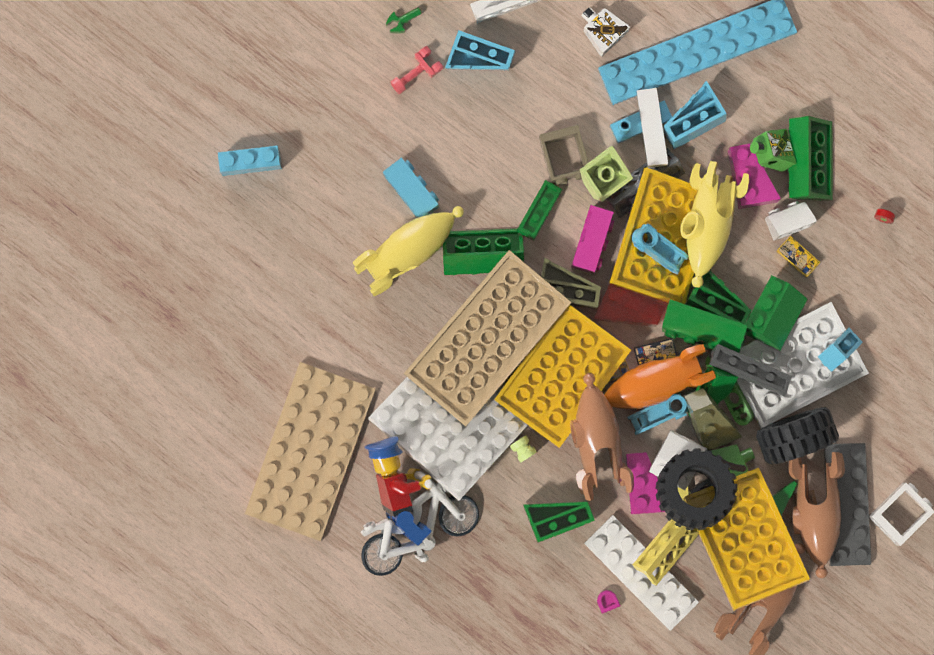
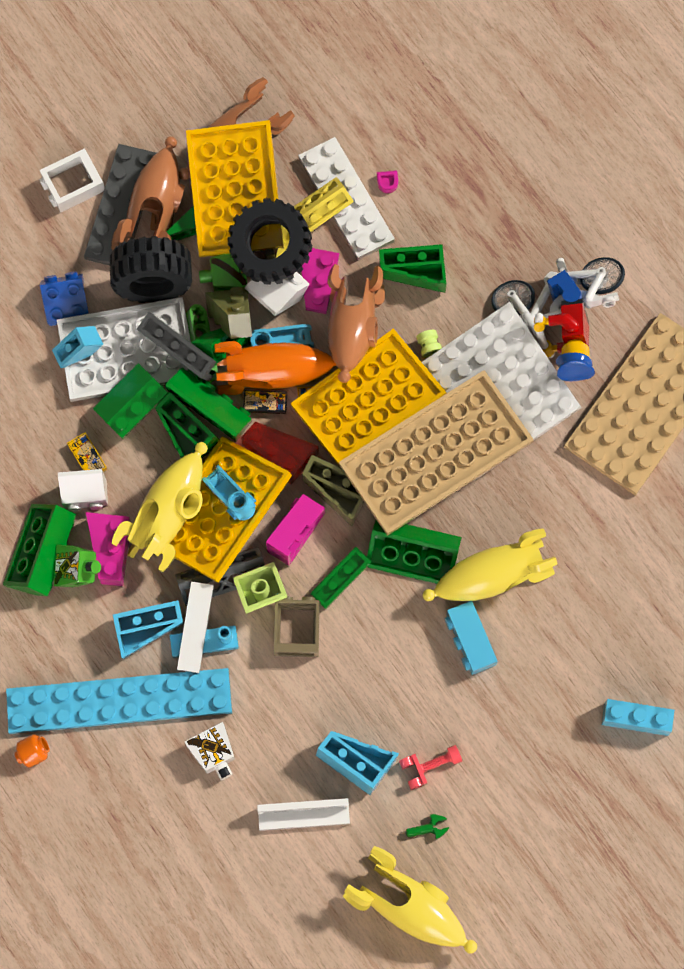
camera: 165 degrees left, 10 degrees down
(870, 398) = (63, 297): none -> blue bracket

